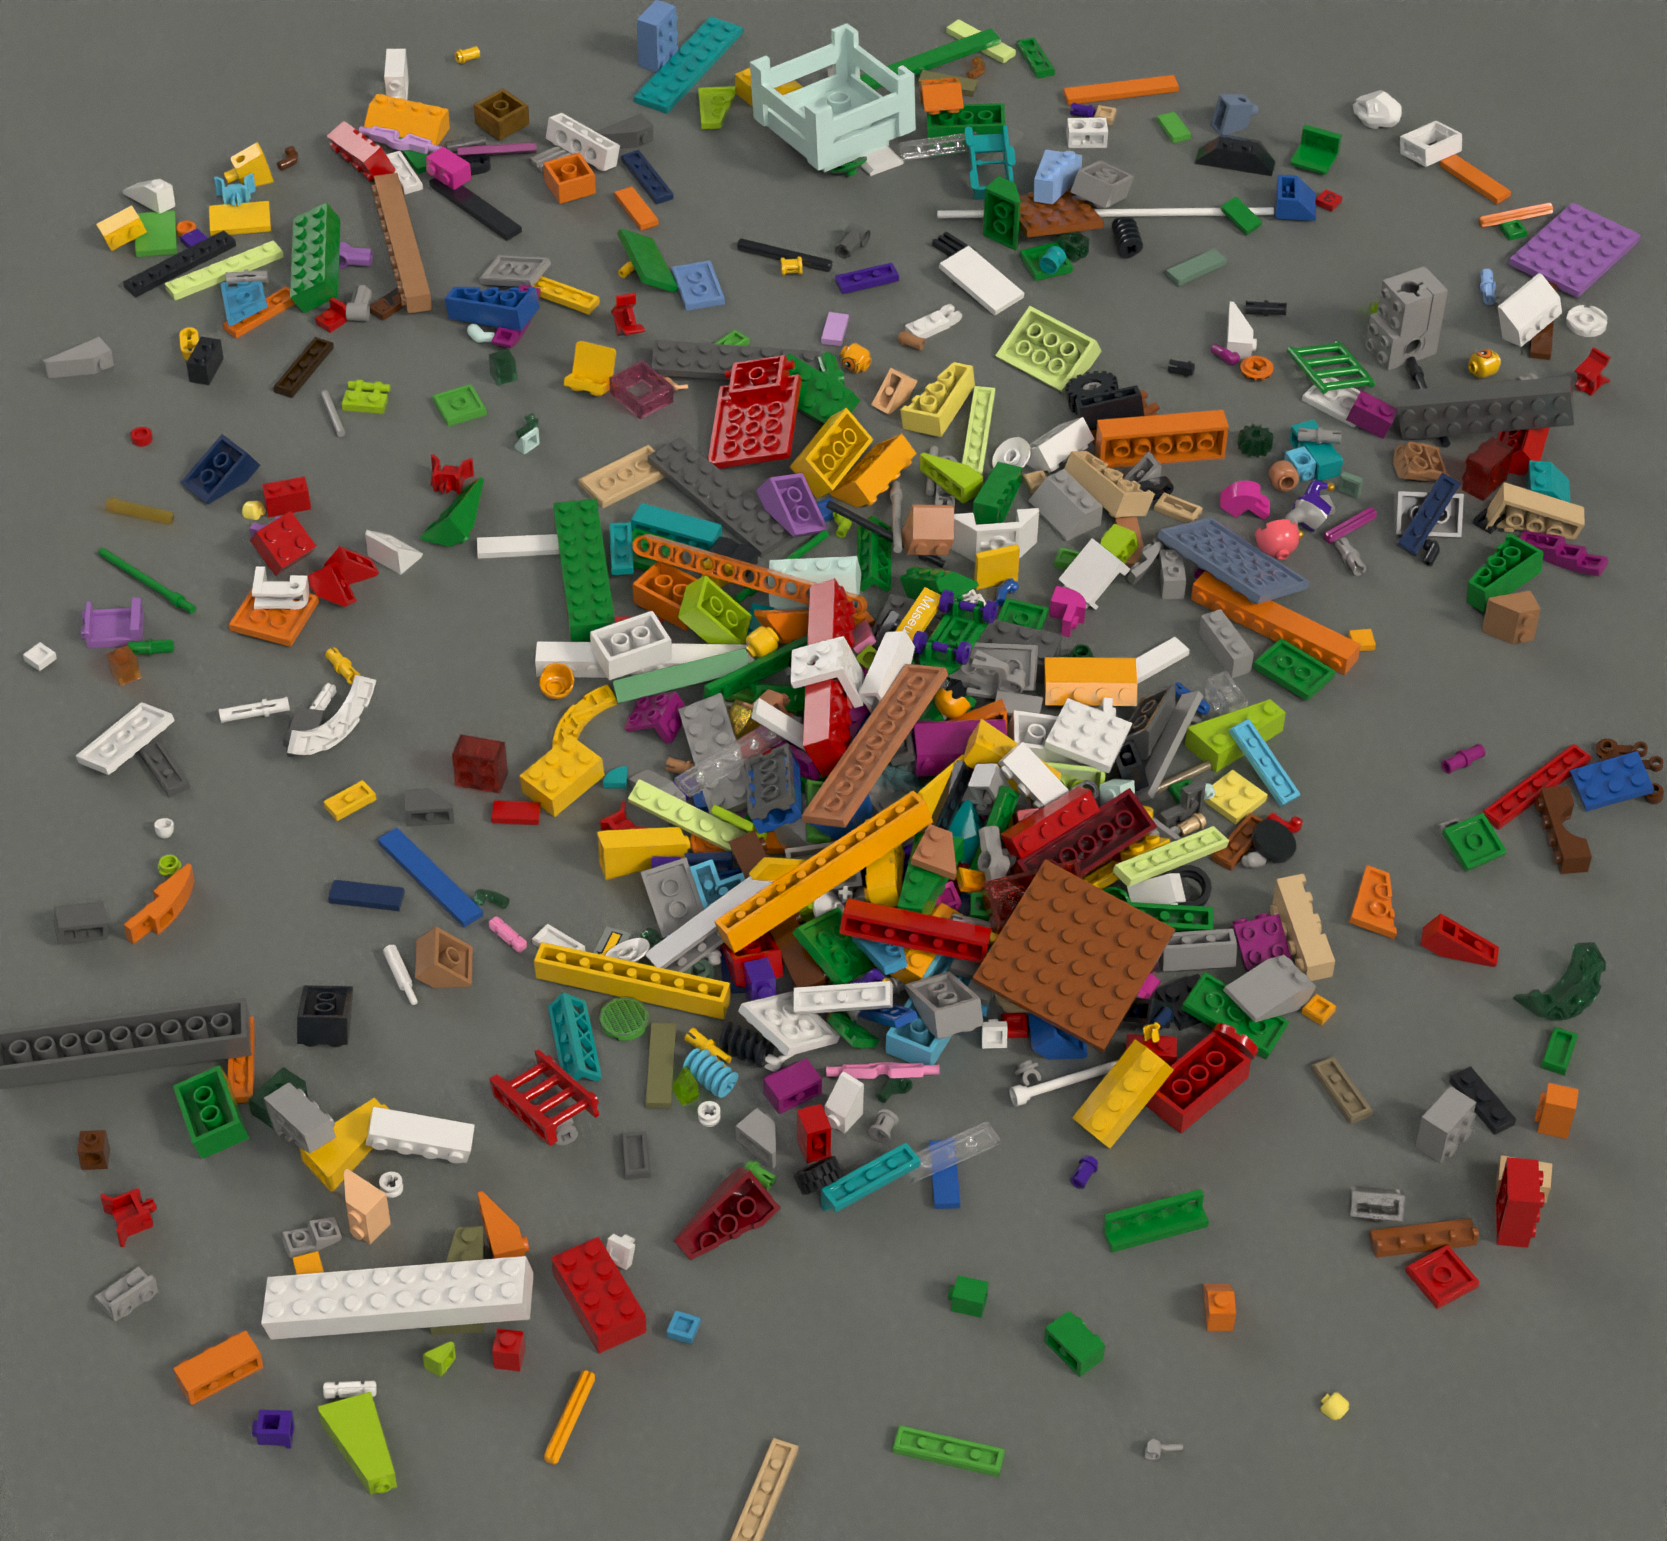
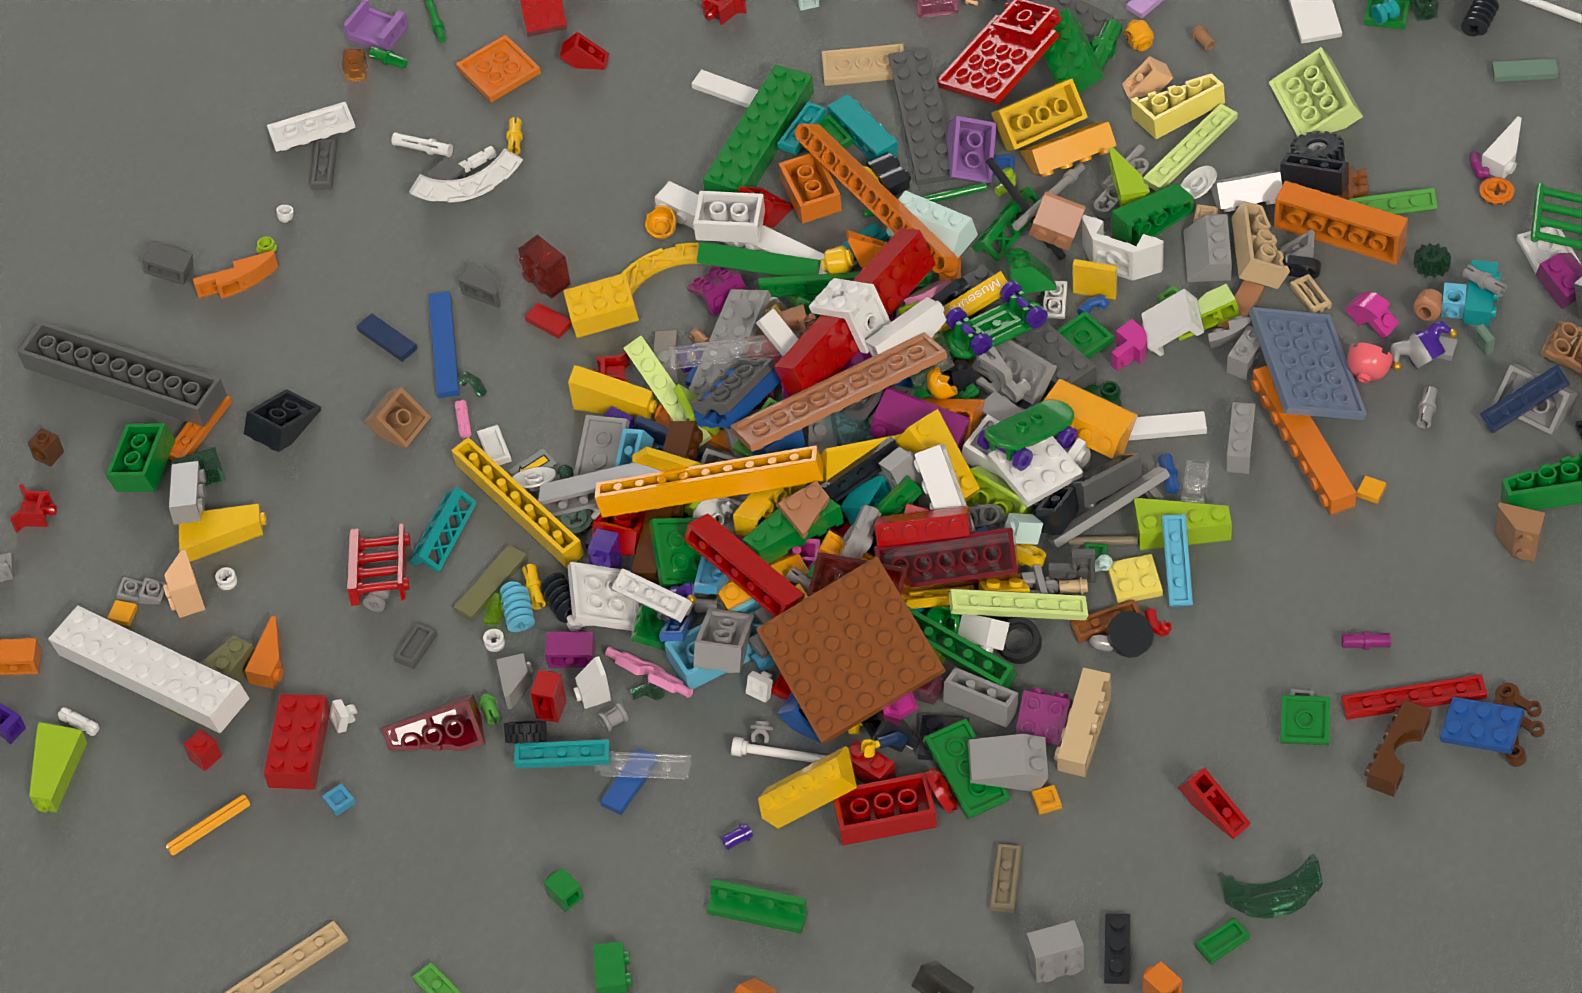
camera: 40 degrees right, 5 degrees up
(39, 656) = (303, 31): white plate -> none
(279, 593) = (507, 54): white piece -> none
(332, 585) = (554, 64): red slope -> none
(349, 800) = (432, 252): yellow plate -> none
(391, 551) = (627, 52): white slope -> none
(400, 972) = (362, 411): white axle -> none
(420, 1135) = (266, 550): white brick -> none
(440, 1358) = (154, 731): lime slope -> none
(456, 519) = (694, 48): green wedge -> none
(616, 778) = (647, 327): teal tile -> none
(624, 1018) = (493, 531): tile -> none
(713, 613) = (818, 218): lime brick -> none
(934, 322) = (1238, 29): white hinge -> none
(1066, 704) = (1028, 429): none -> green piece
(1182, 367) = (1429, 164): black pin -> none
(1196, 402) = (1402, 202): none -> bright green plate
(1266, 308) = (1555, 136): black pin -> none
(1294, 669) = (1284, 489): green plate -> none
(1350, 525) = (1454, 377): magenta axle -> none
(1373, 903) = (1171, 731): orange wing -> none
(1432, 549) = (1511, 433): black arm -> none

